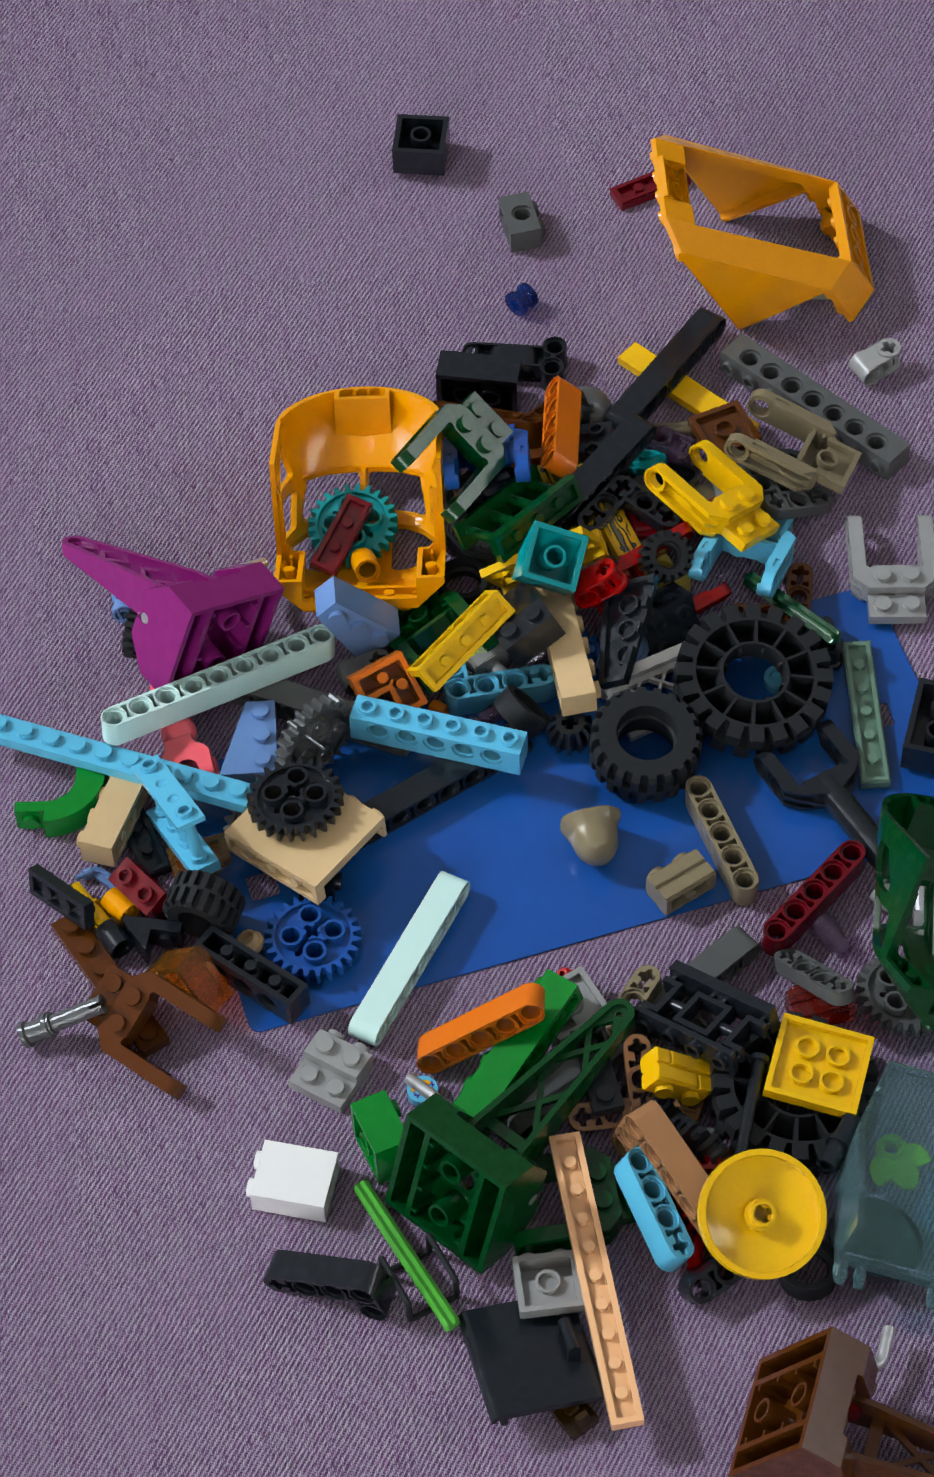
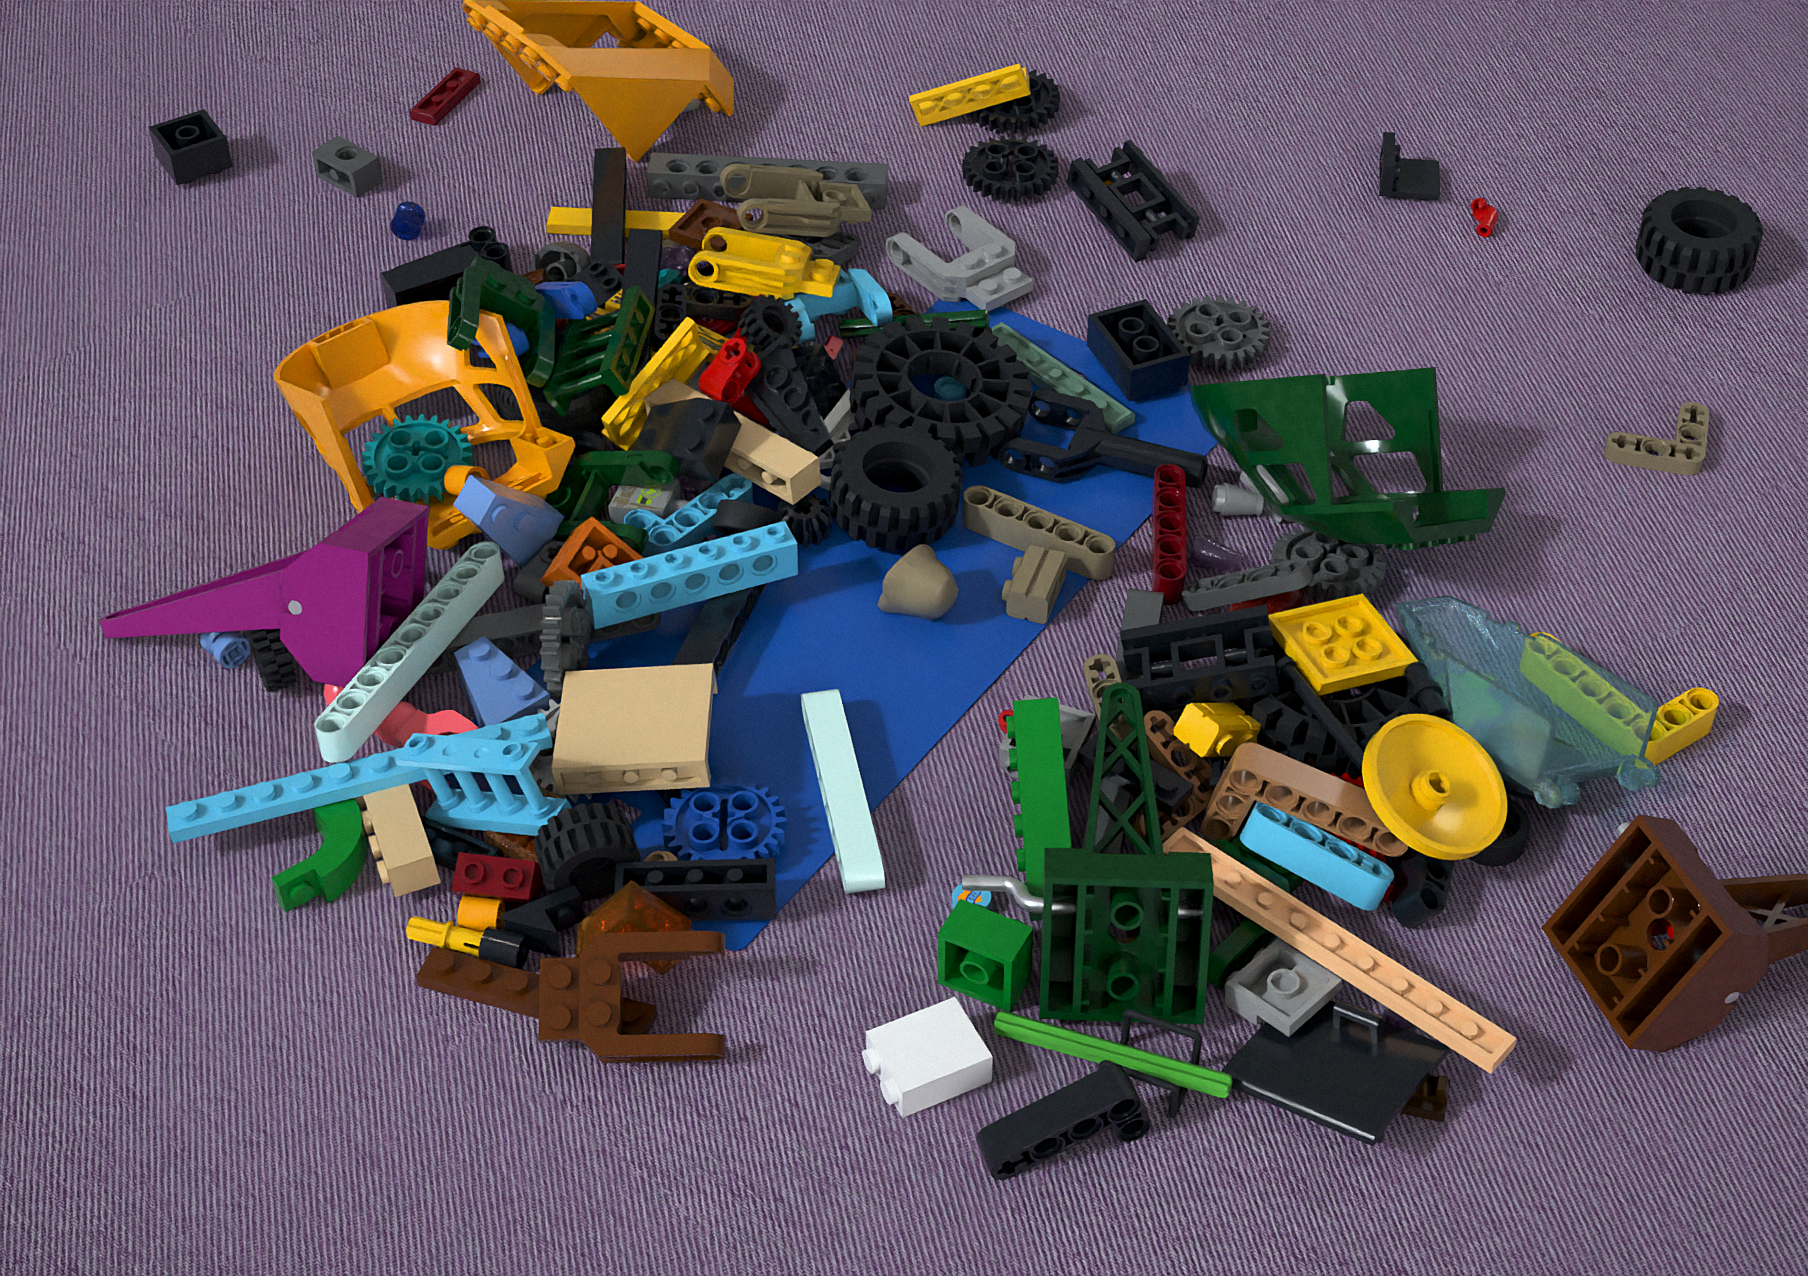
camera: 40 degrees left, 10 degrees down
(50, 1024) = (513, 1068): dark grey pin -> none
(61, 897) = (411, 937): black plate -> none
(98, 873) = (431, 902): medium blue piece -> none
(295, 799) = (632, 699): black gear -> none
(332, 1069) = (860, 934): light grey plate -> none
(341, 535) = (420, 464): dark red tile -> none
(462, 639) = (646, 474): yellow fence -> none
(481, 1028) = (994, 794): orange beam -> none
(551, 558) = (677, 362): teal slope -> none
(561, 428) = (558, 265): orange beam -> none
(876, 361) = (788, 126): light grey piece -> none

